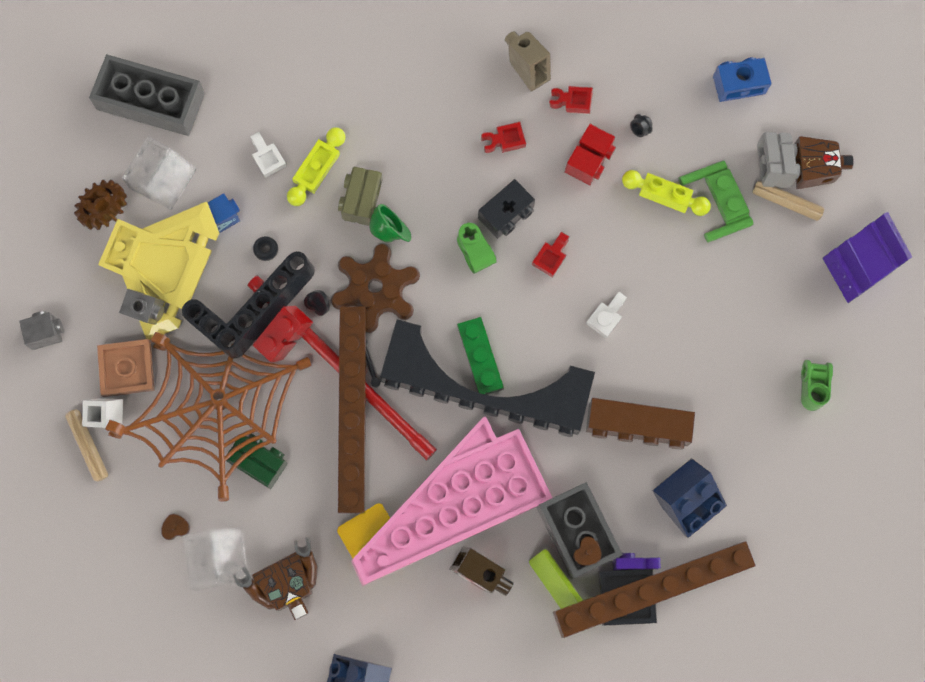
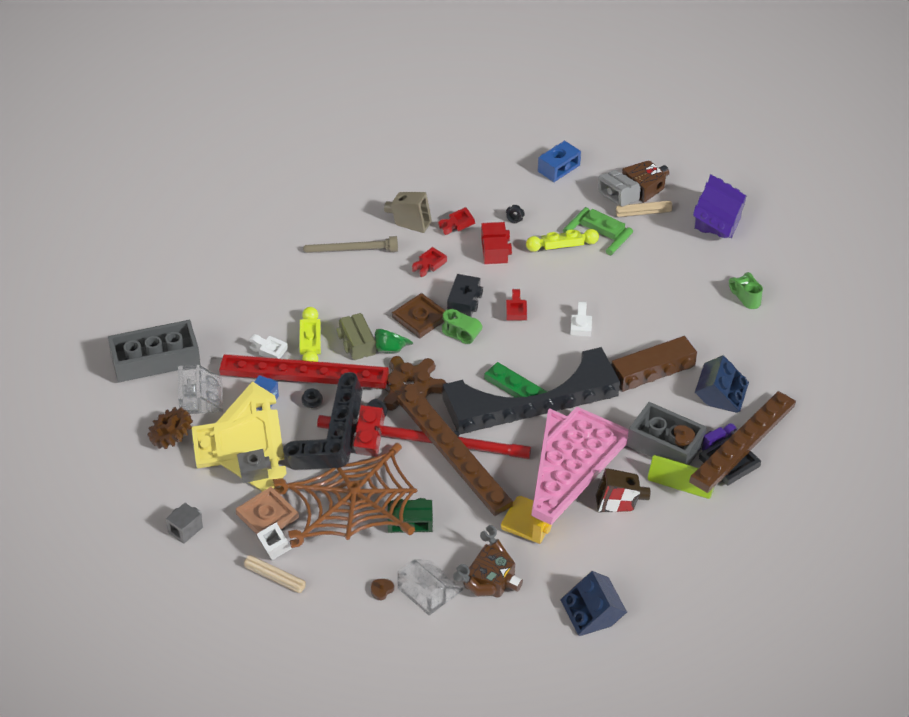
camera: 30 degrees left, 30 degrees down
(278, 211) = (301, 370): none -> red plate
(448, 203) = (419, 315): none -> reddish brown tile
(481, 89) = (390, 244): none -> dark tan piece

